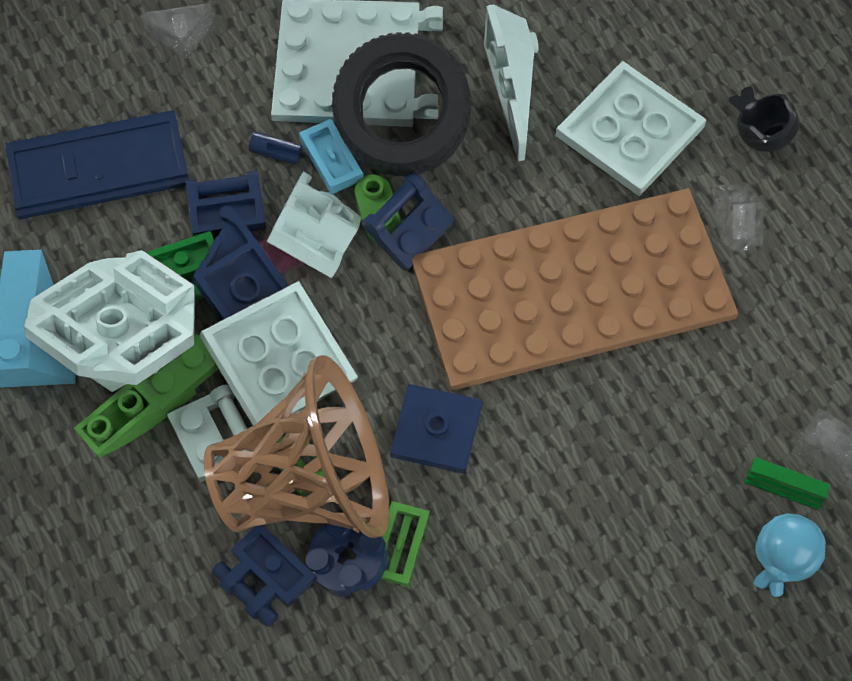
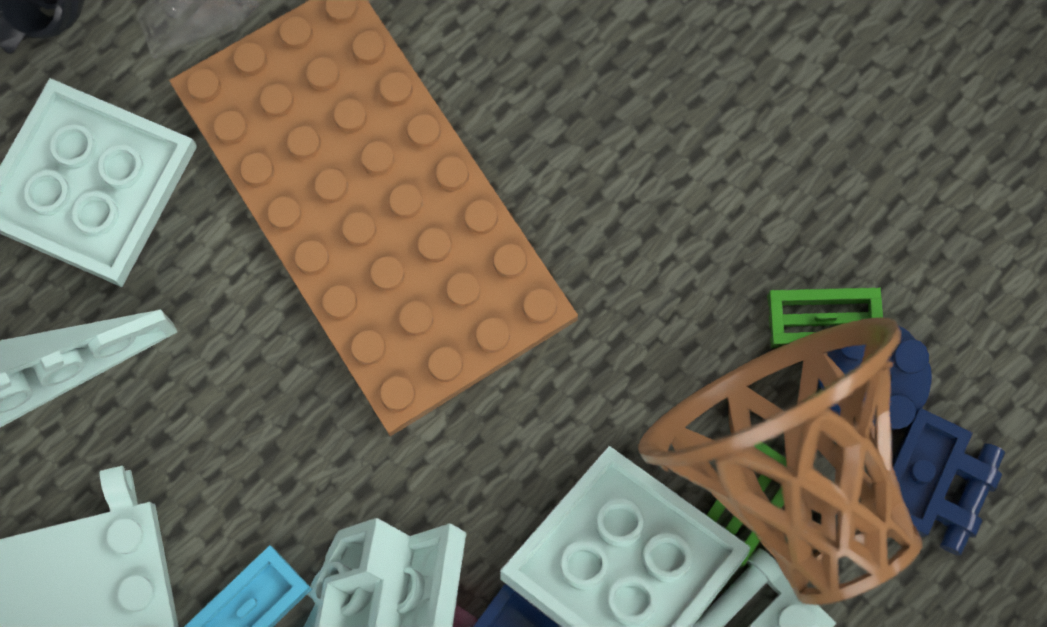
camera: 105 degrees left, 10 degrees up
(370, 202) = (317, 511): bright green plate -> none
(397, 53) = (159, 422): black tyre -> none
(416, 230) = (342, 437): dark blue plate -> none
(436, 428) = (644, 319): dark blue plate -> none

